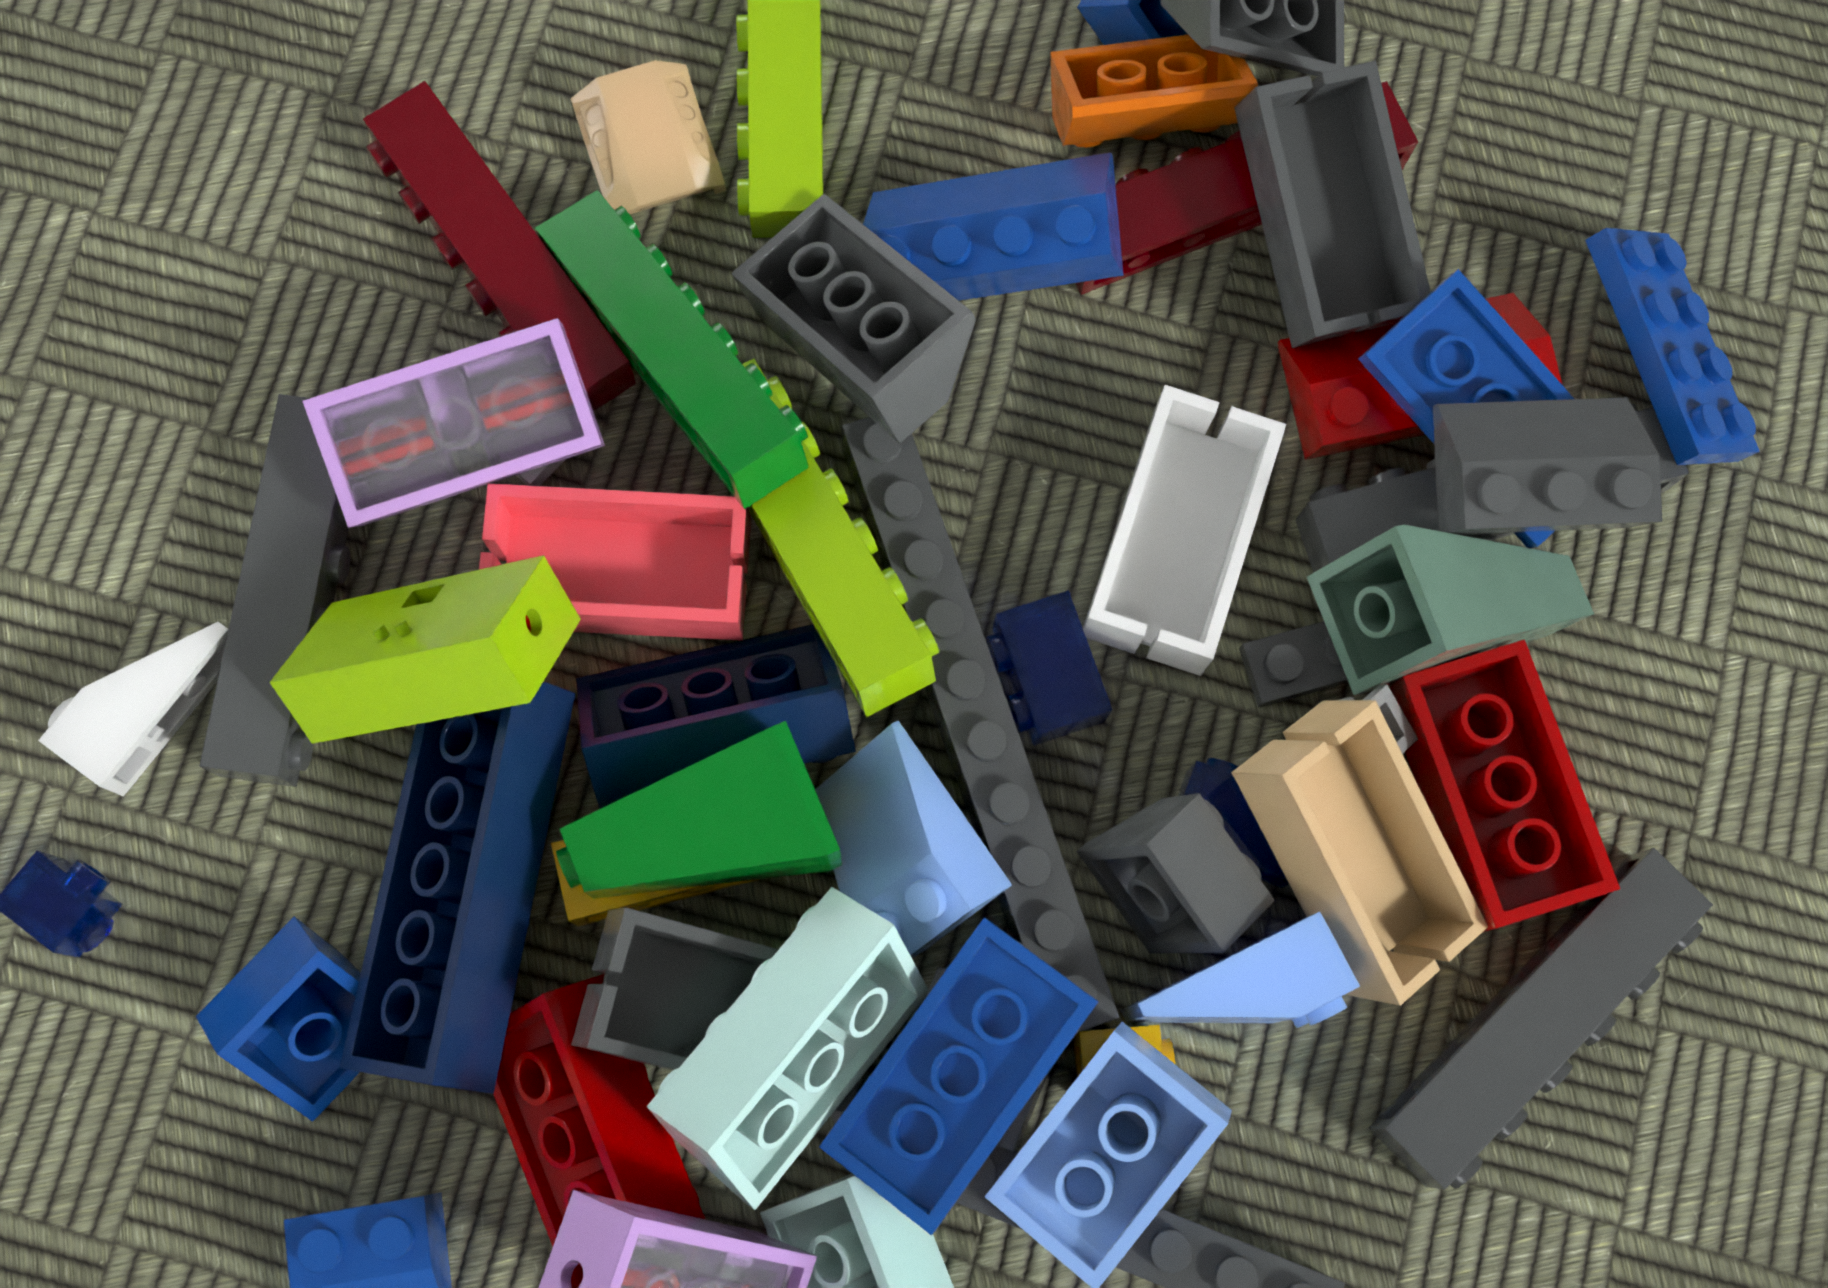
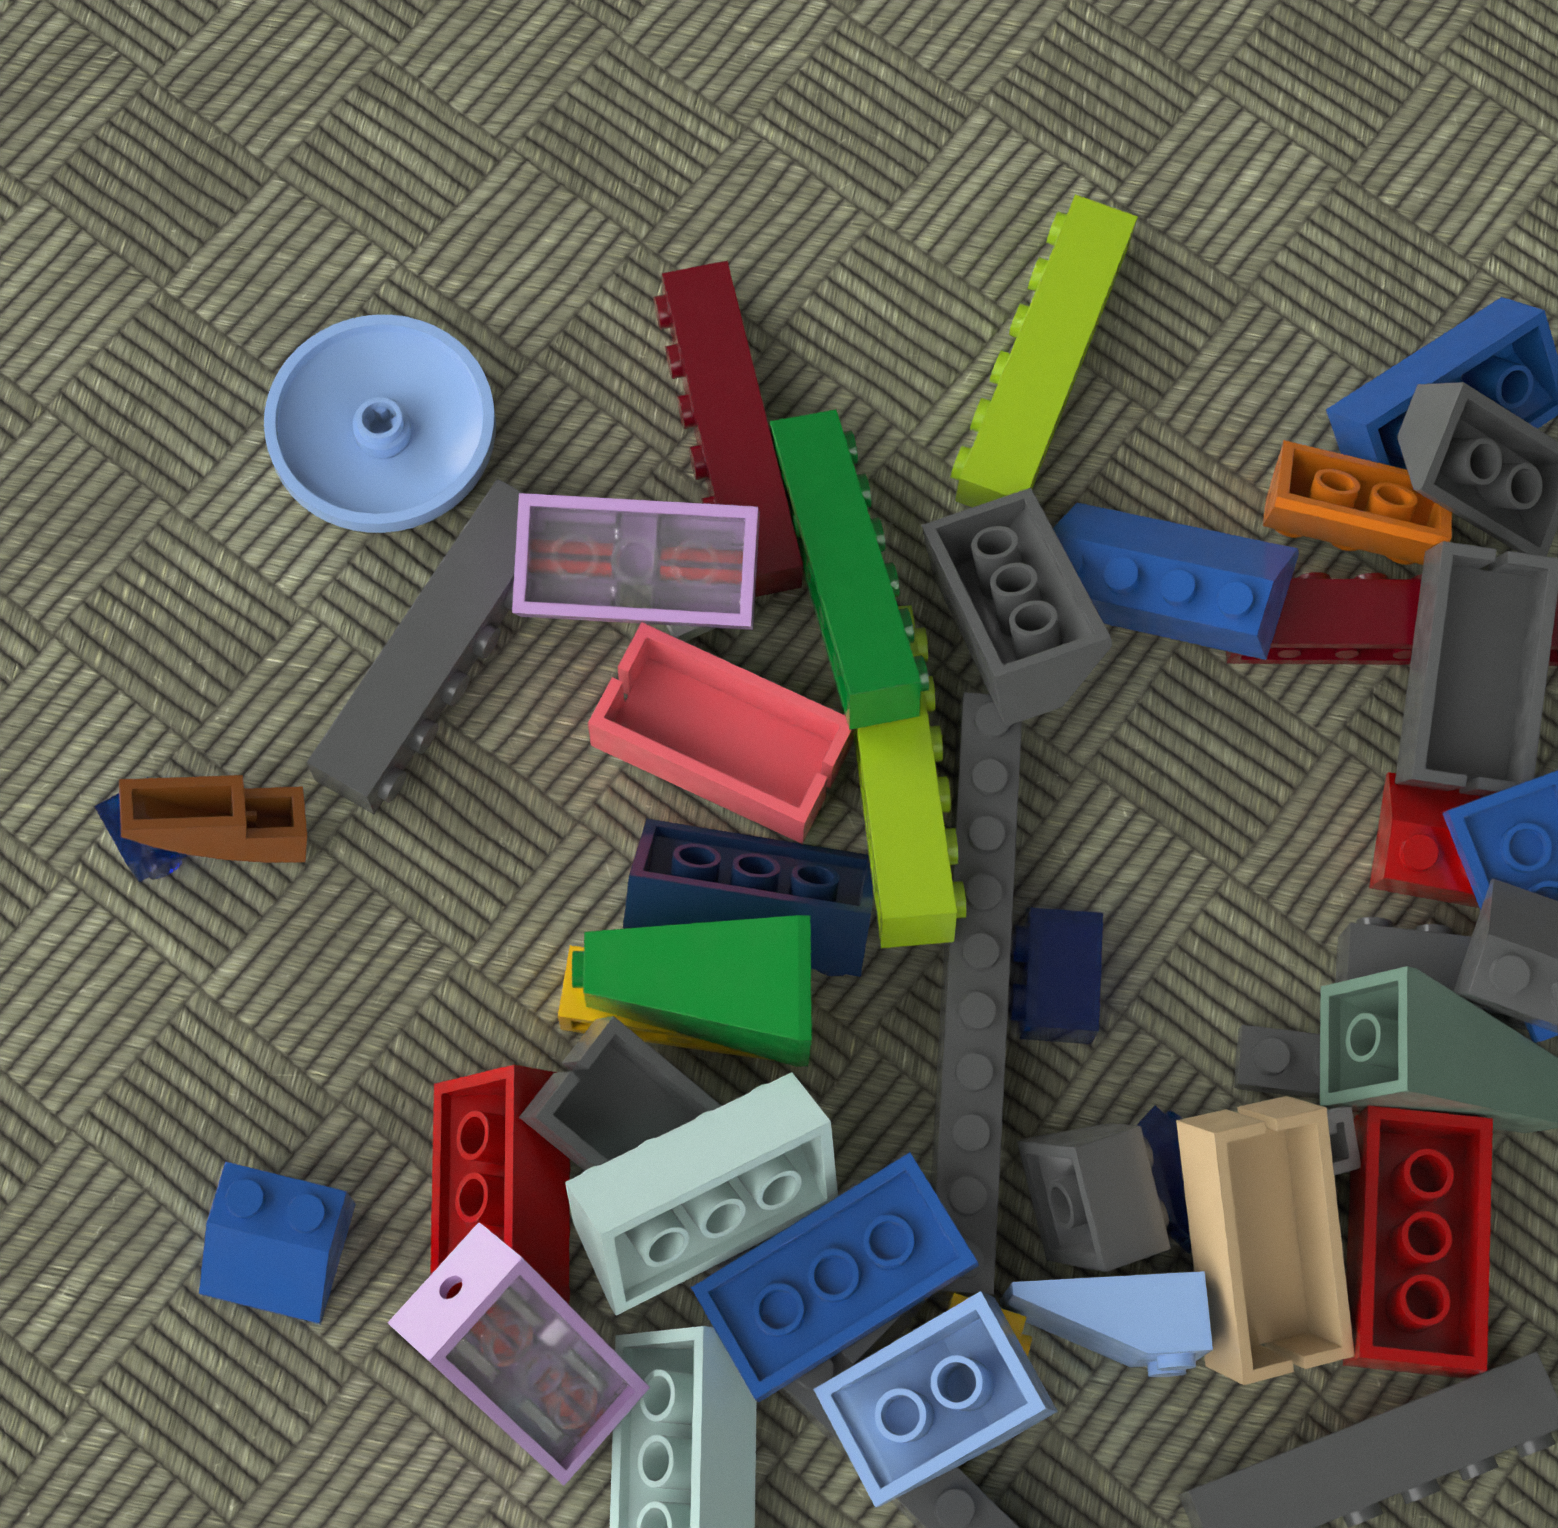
camera: 25 degrees right, 5 degrees down
(123, 865) = (215, 818): none -> dark orange slope
(130, 715) = (269, 695): white slope -> none
(132, 384) = (380, 423): none -> light blue dish
(288, 1019) = (302, 1008): blue slope -> none
(428, 651) = (536, 741): lime brick -> none
(458, 895) = (482, 943): dark blue brick -> none
(647, 136) = (898, 379): tan slope -> none
(906, 842) = (873, 1071): light blue slope -> none
(1183, 531) = (1226, 903): white piece -> none

